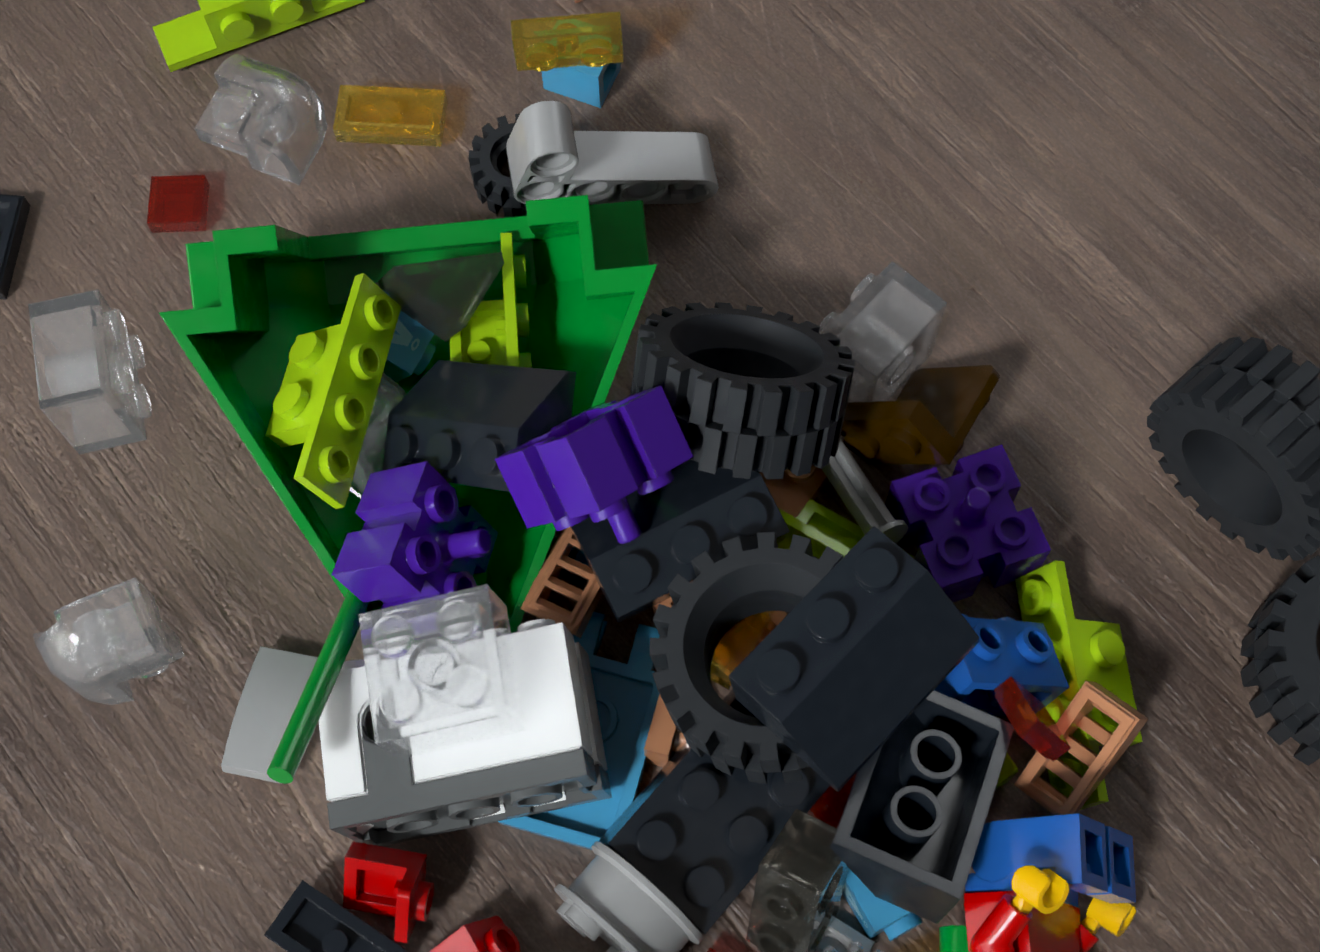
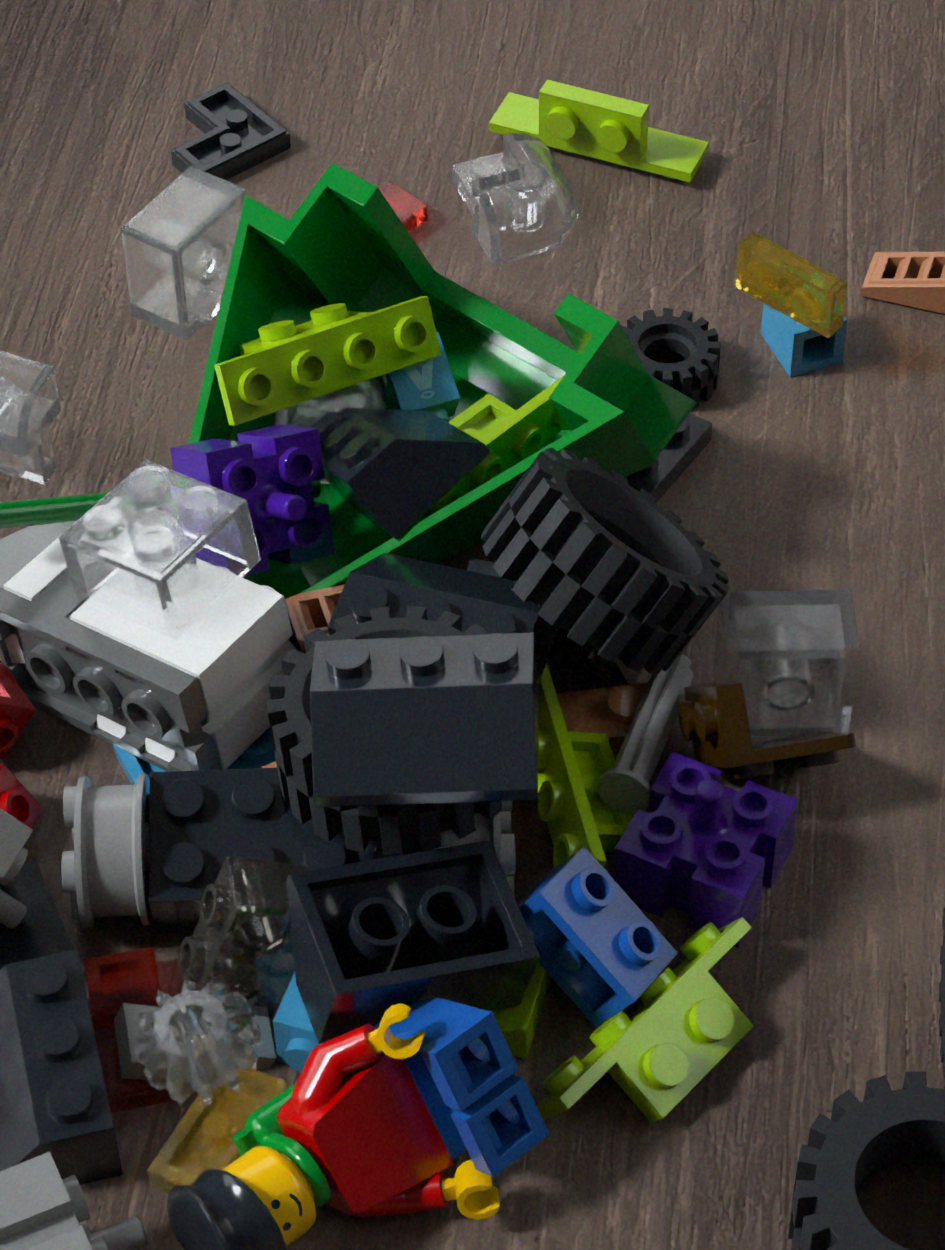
camera: 45 degrees right, 20 degrees down
(390, 115) = (611, 262): clear yellow plate -> none
(444, 291) = (485, 366): clear smoke slope -> none
(595, 462) = (421, 492): dark purple brick -> none
(608, 166) = (732, 397): light grey beam -> none
(1031, 719) = (561, 969): clear red tile -> none
(1099, 765) = (612, 1036): nougat slope -> none

